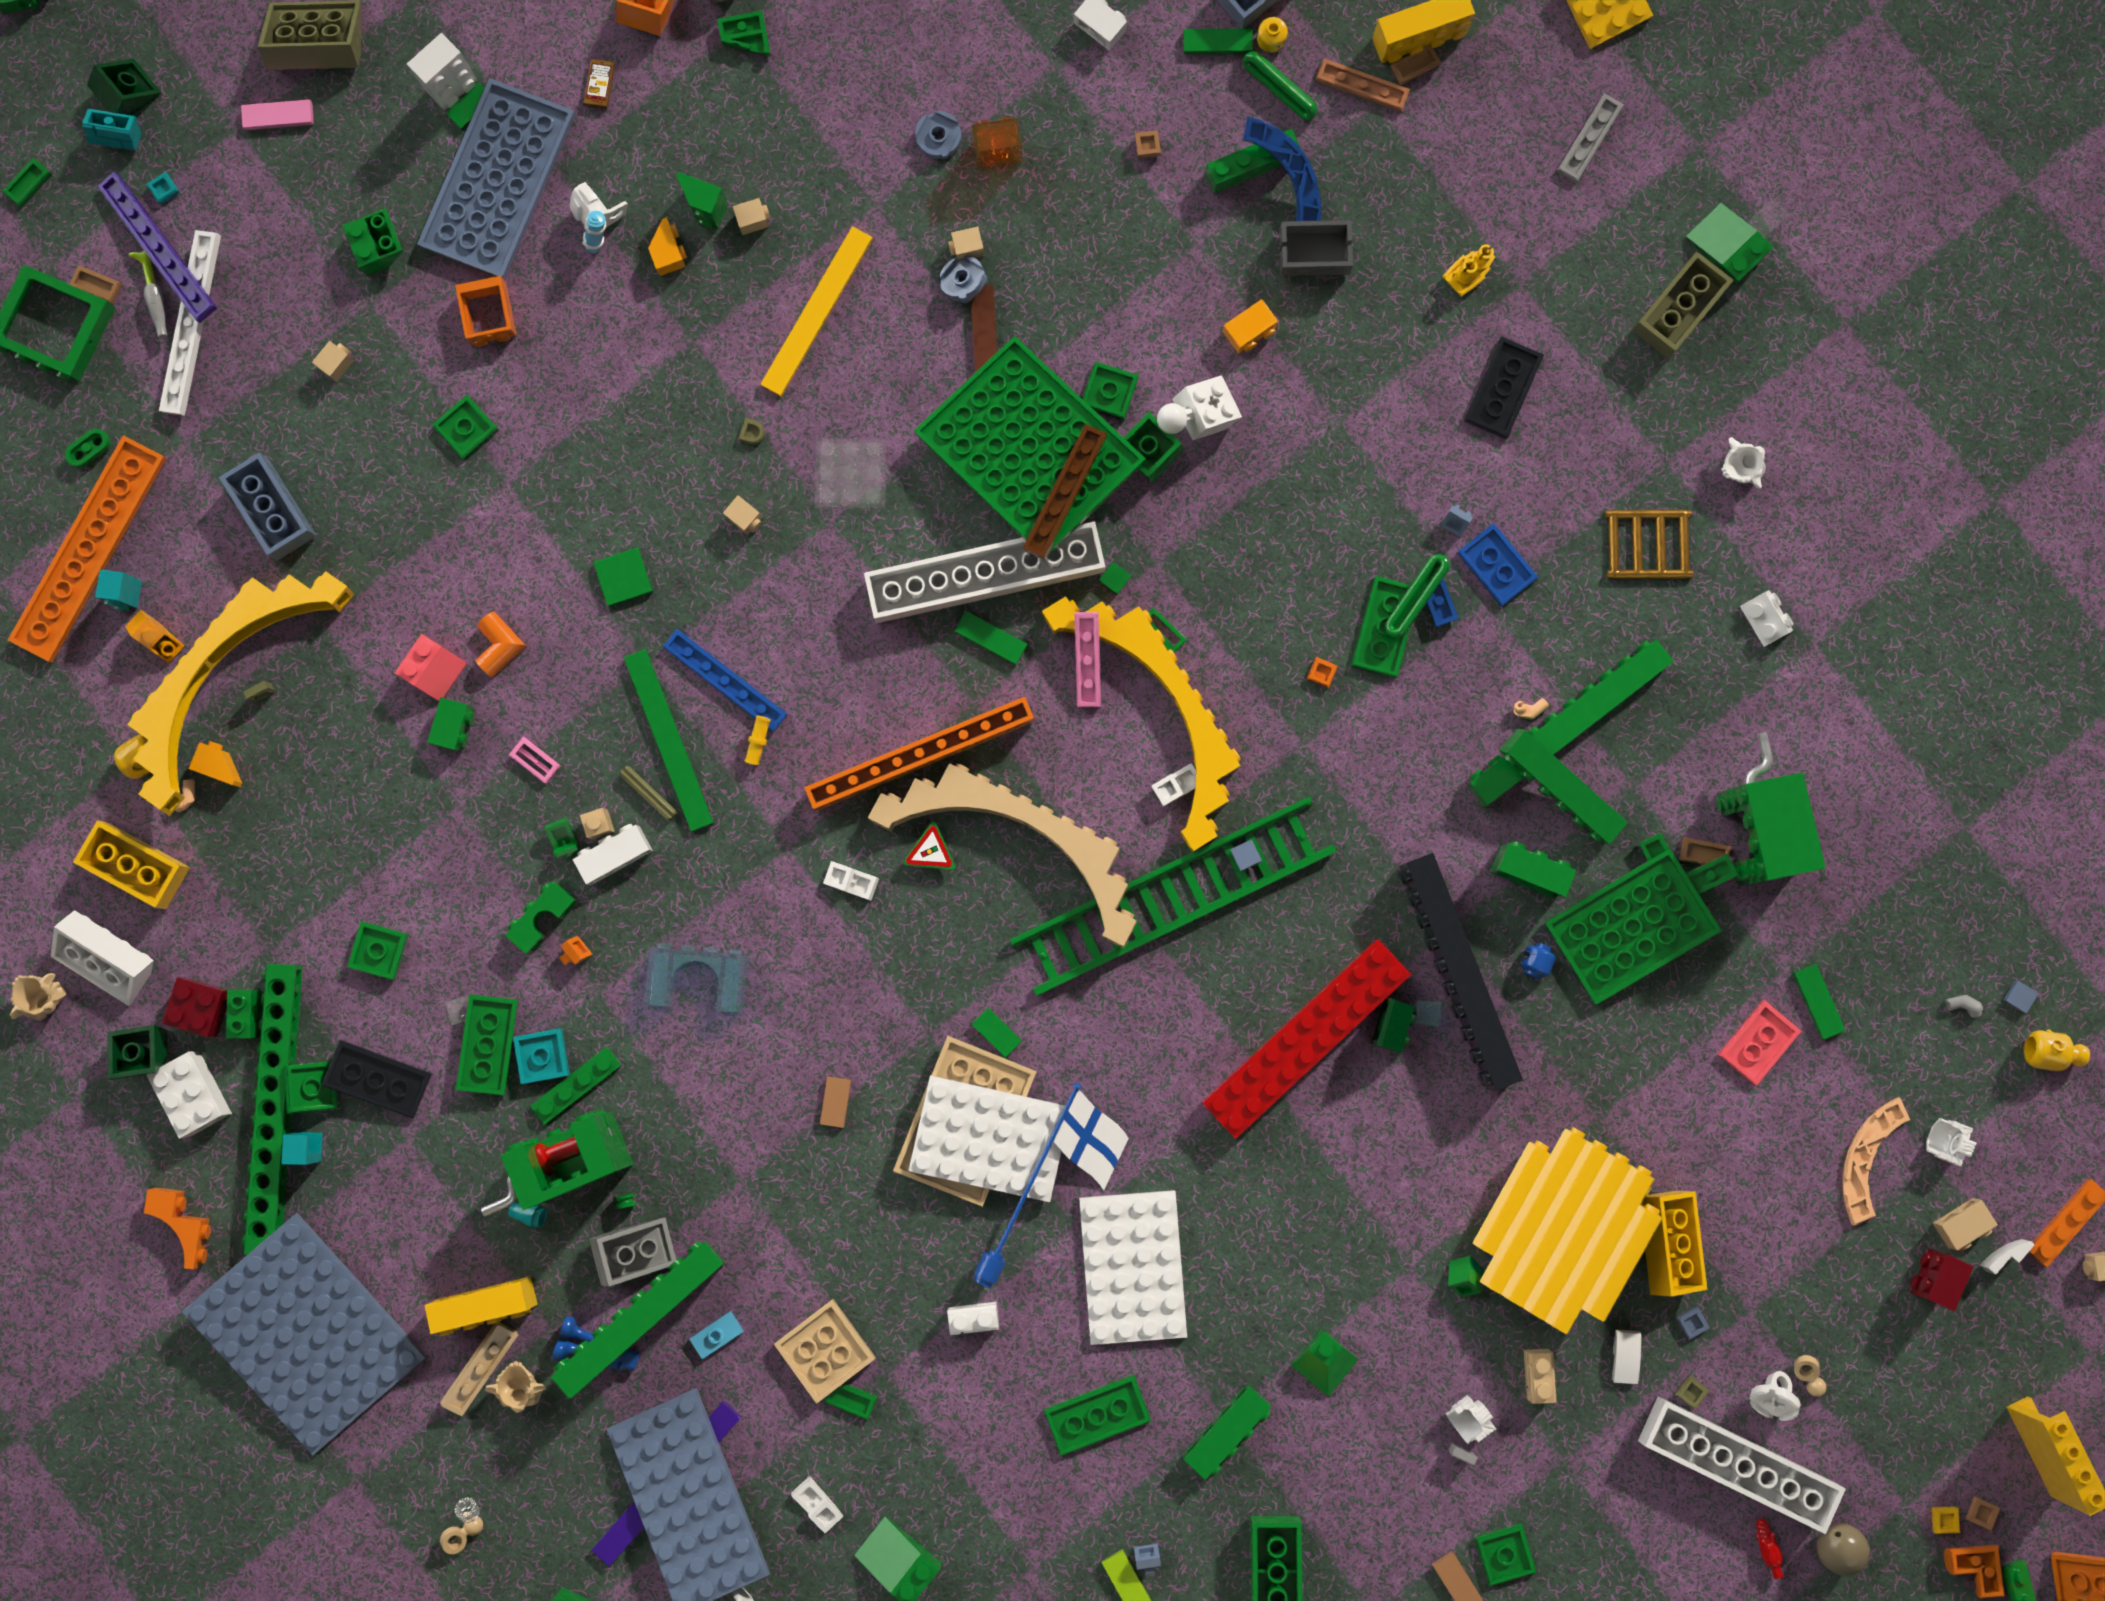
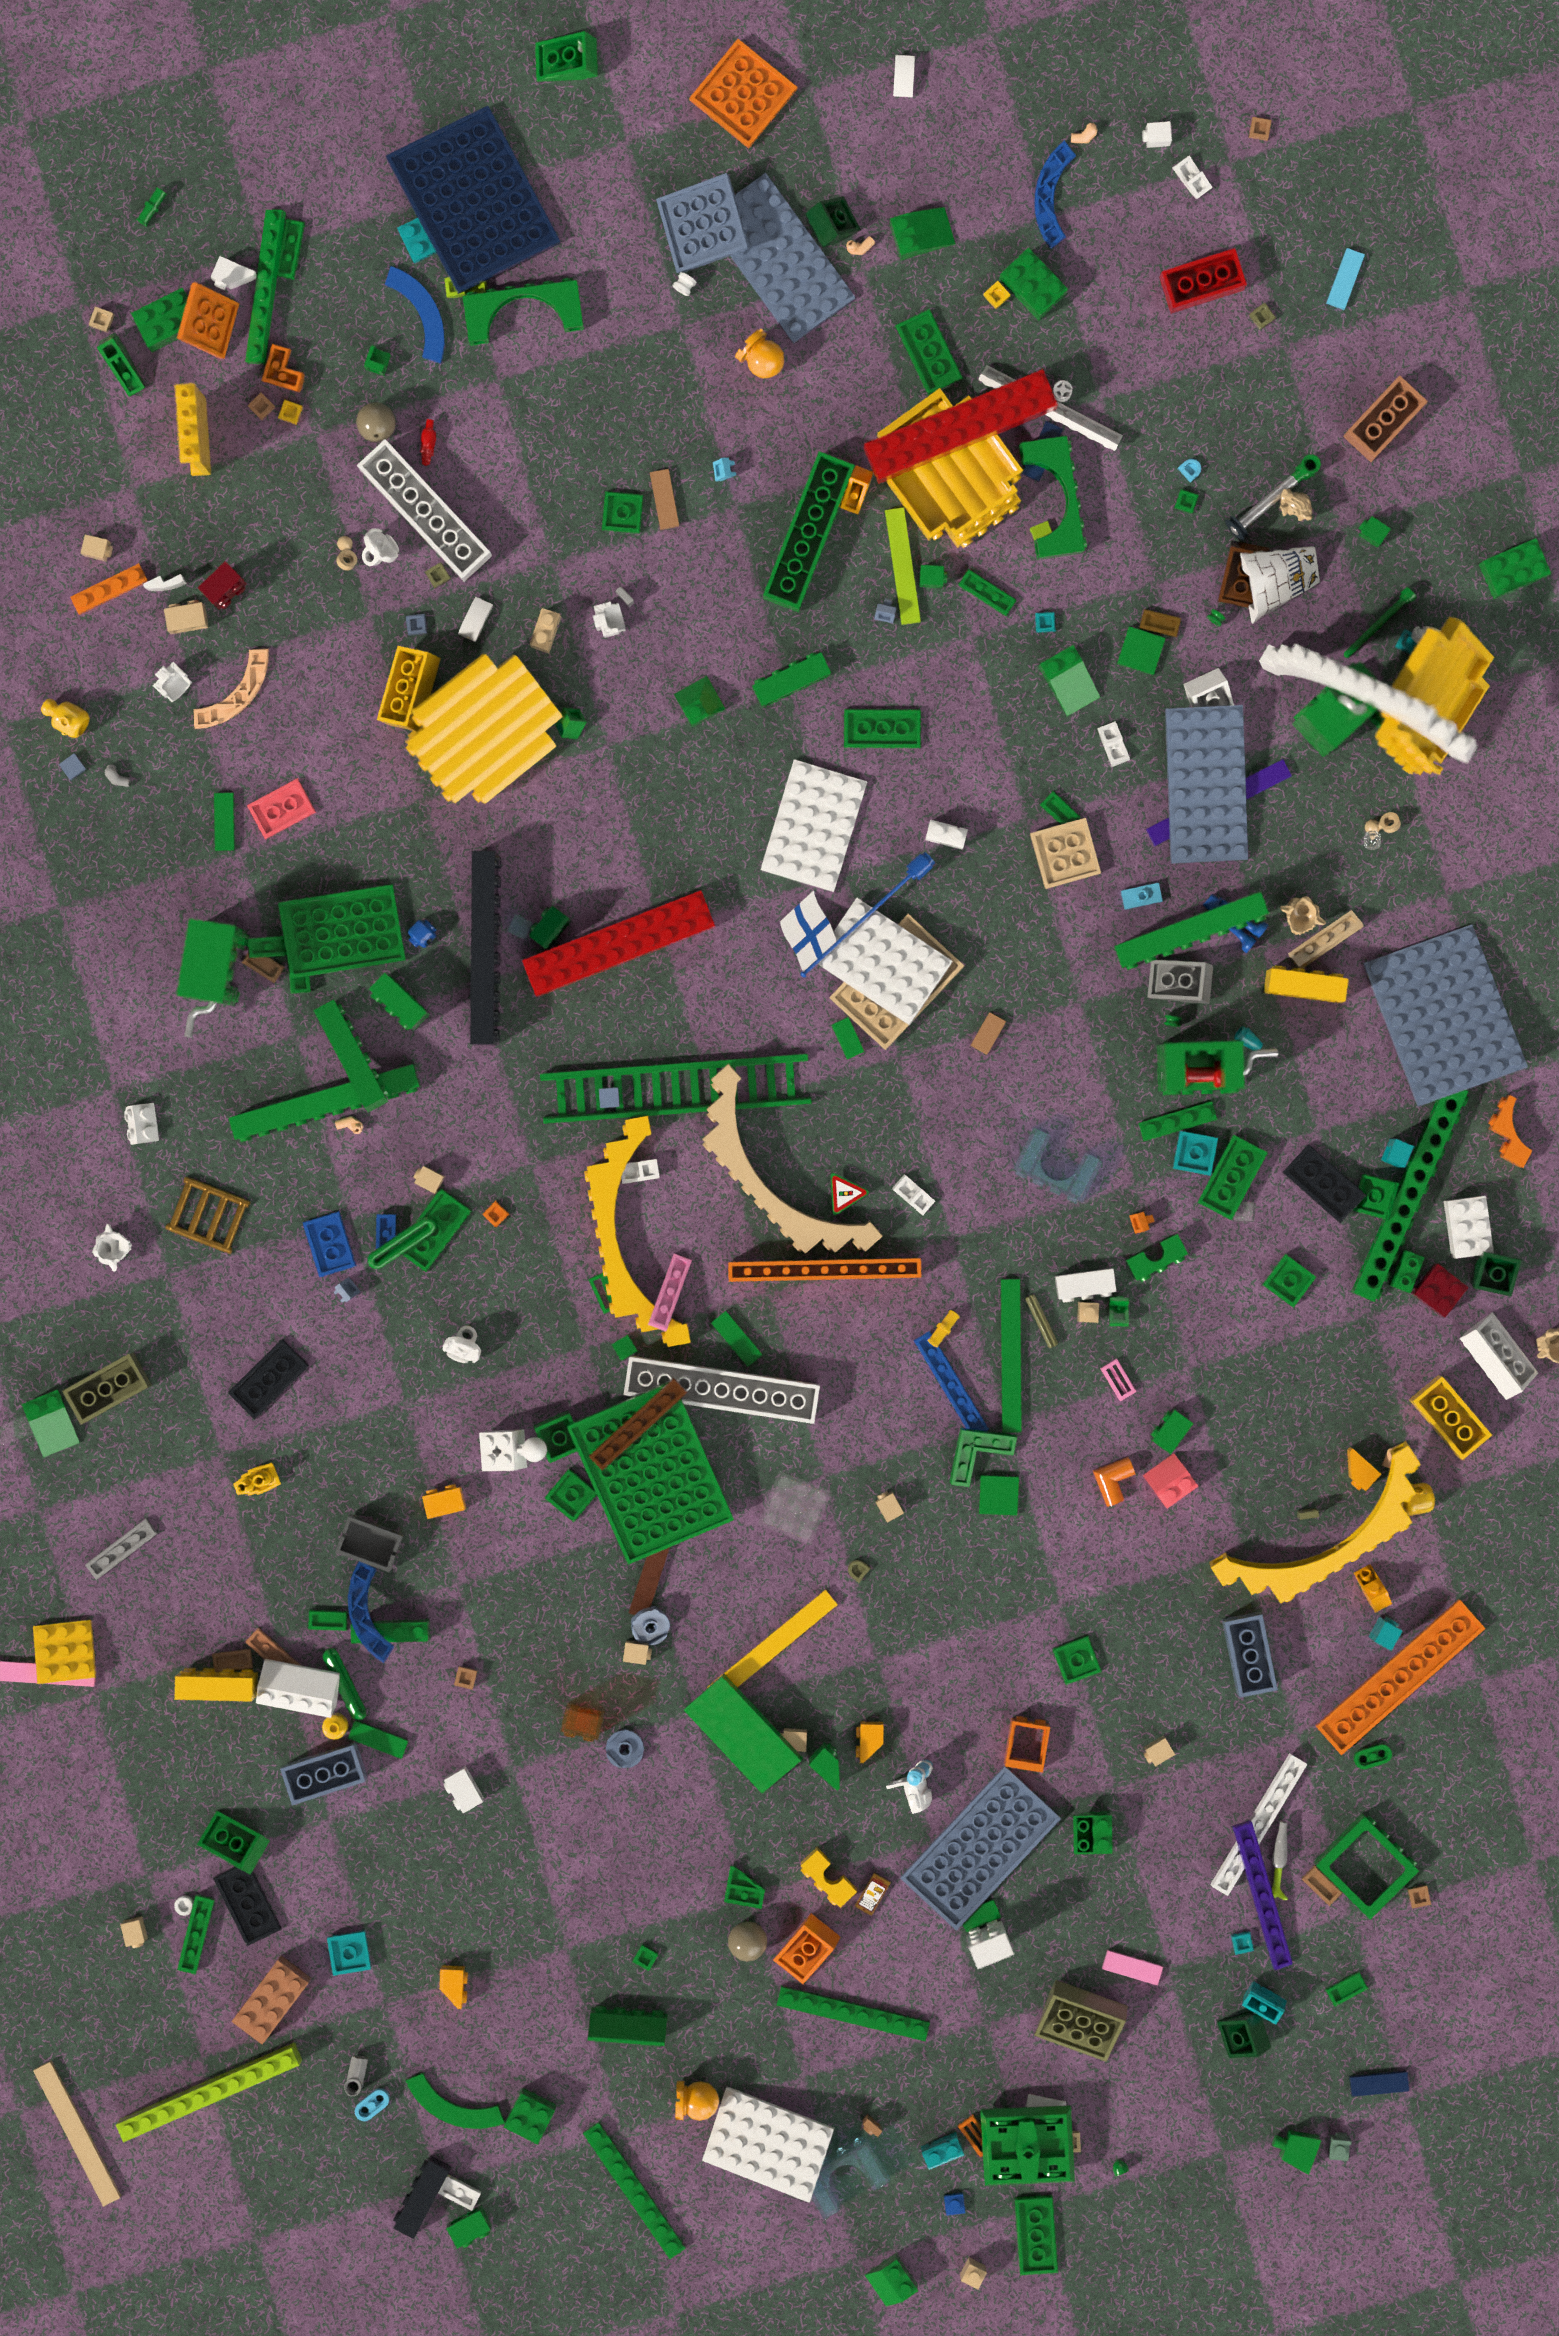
camera: 160 degrees left, 5 degrees up
(638, 71) = (839, 1890): none -> yellow arch
(678, 618) = (972, 1441): none -> green plate
(811, 200) = (743, 1733): none -> green tile
(1299, 504) = (463, 1349): none -> white tile
(1327, 148) = (328, 1620): none -> green tile
(1330, 57) = (298, 1688): none -> white slope
(1415, 681) = (428, 1179): none -> tan brick

